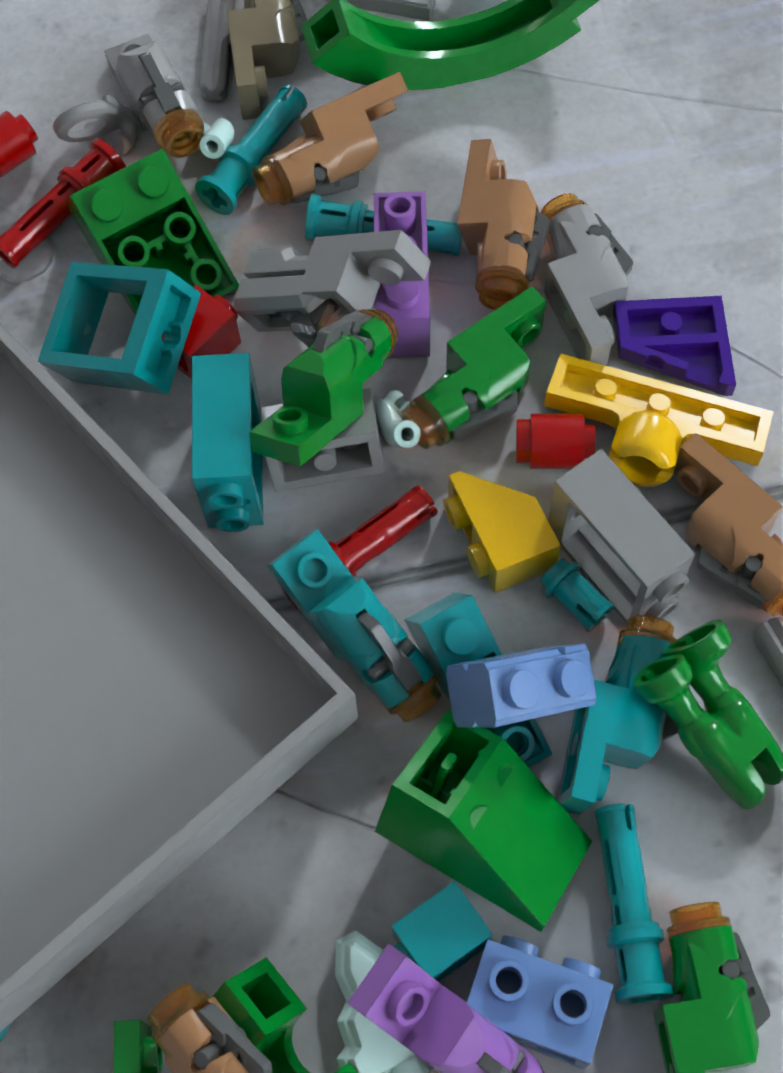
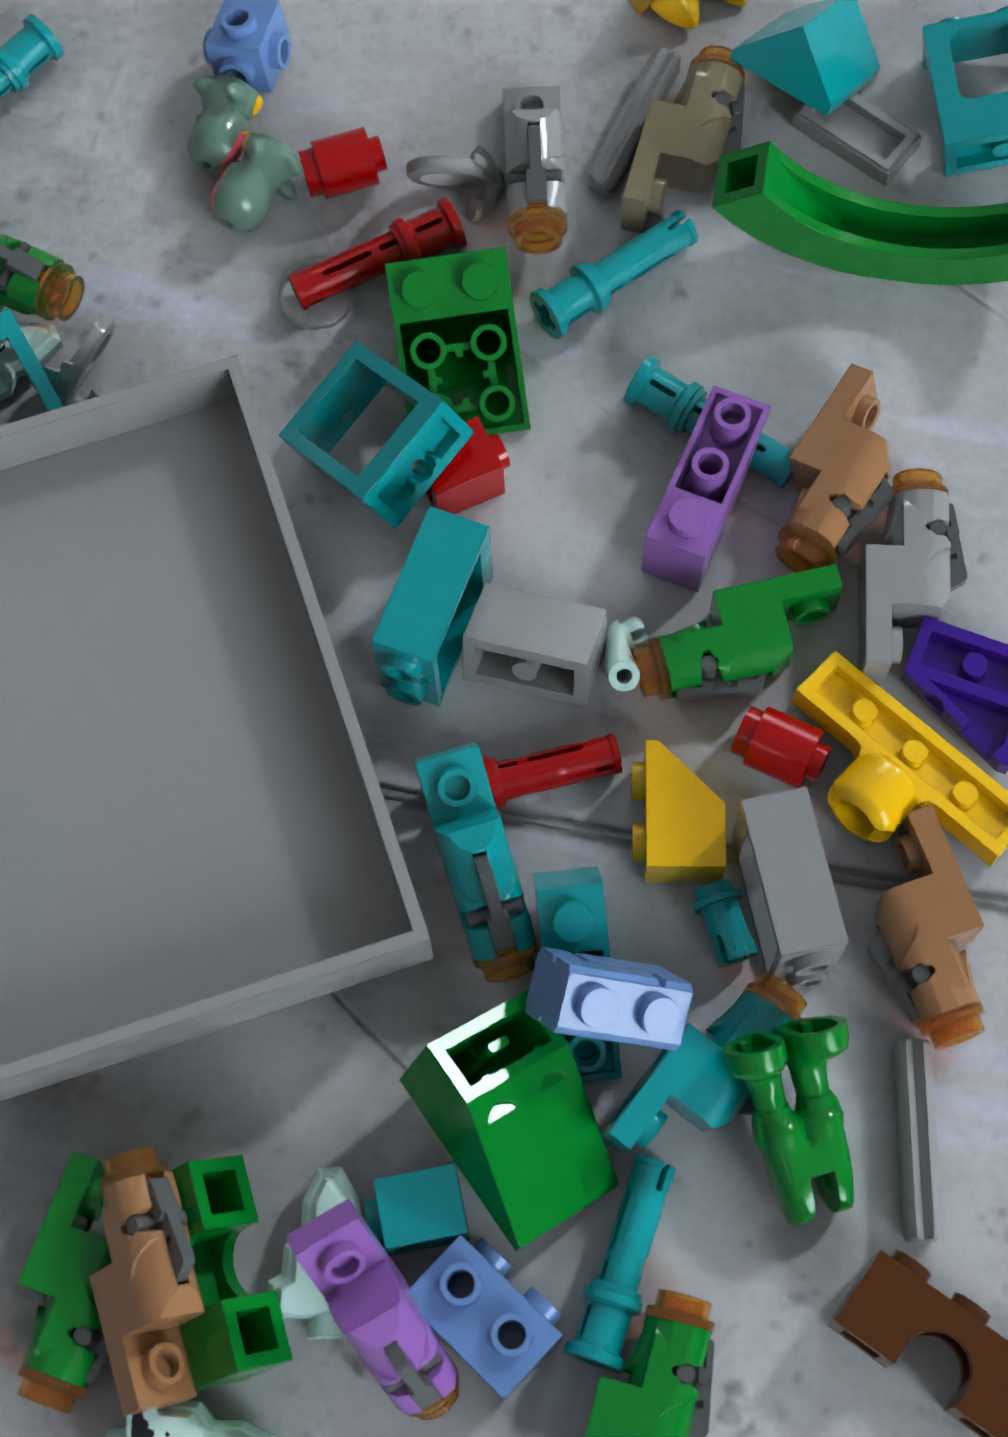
camera: 25 degrees right, 5 degrees up
(216, 138) = (577, 246): light aqua arm -> none
(325, 386) = (552, 595): green plate -> none
(330, 282) = (607, 474): light grey plate -> none
(333, 147) = (701, 312): medium nougat plate -> none

